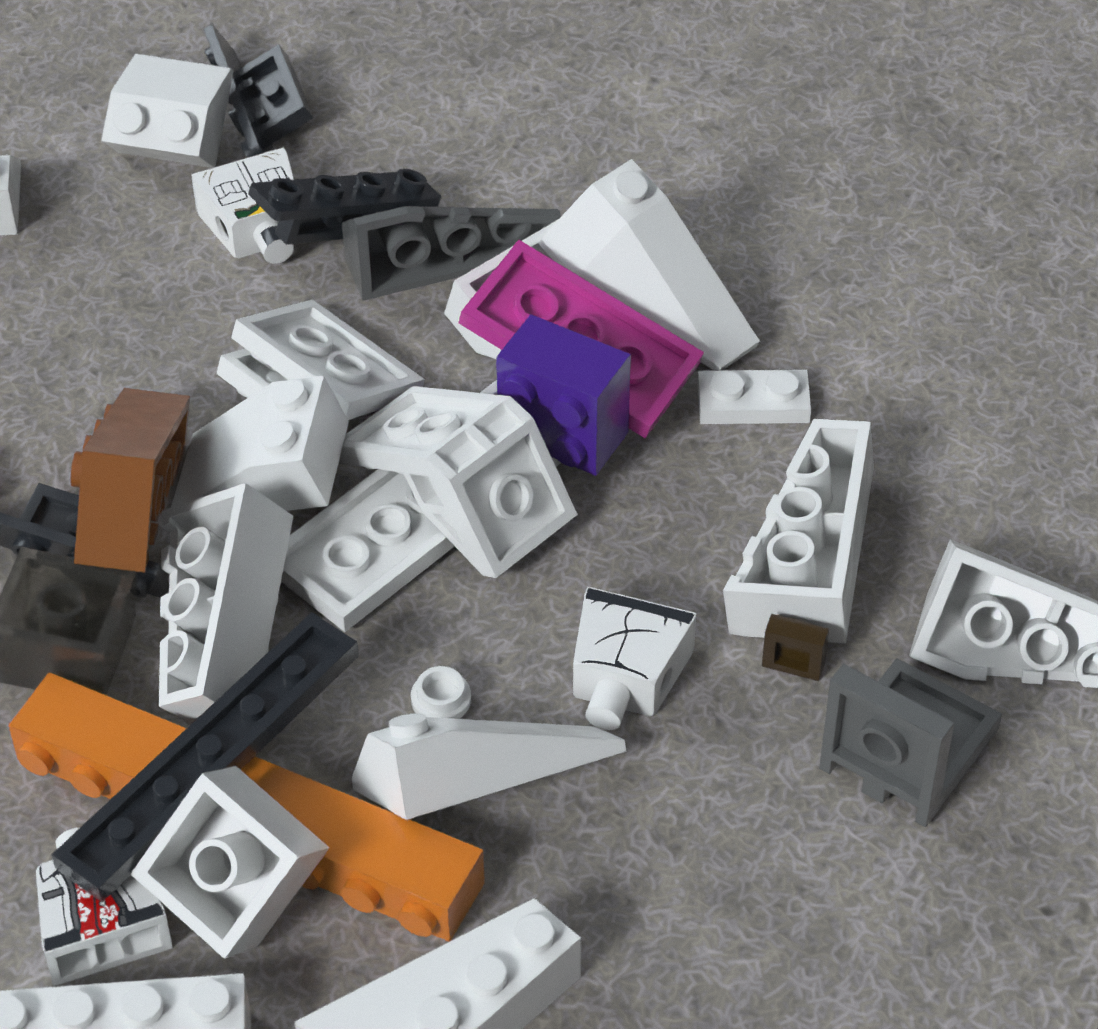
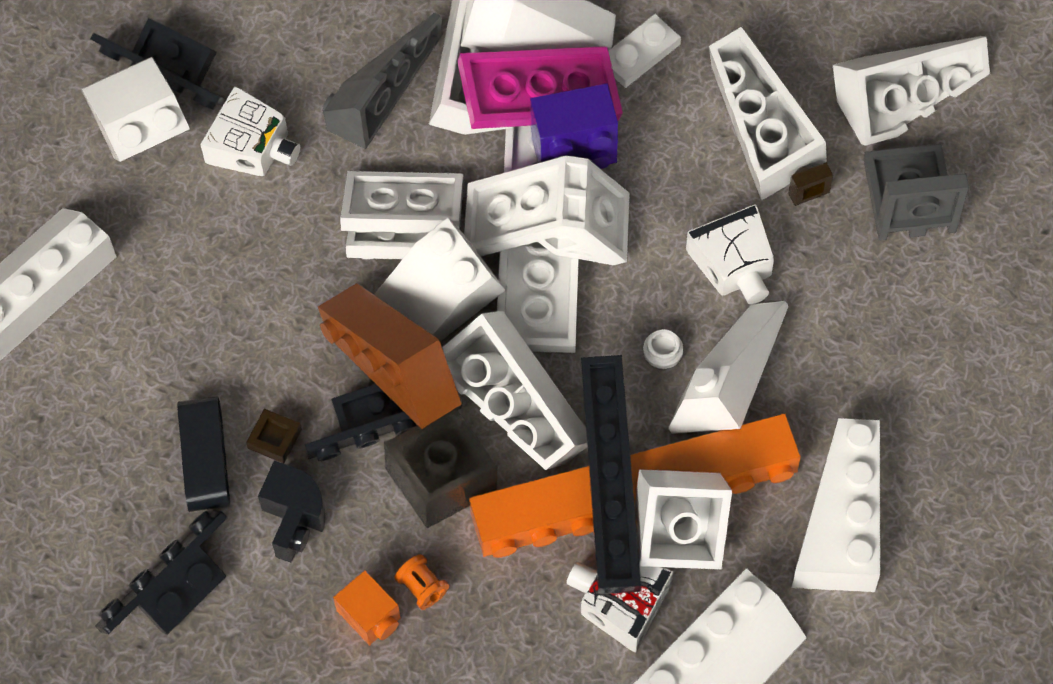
camera: 40 degrees left, 15 degrees up
(318, 206) = (315, 95): black bracket -> none

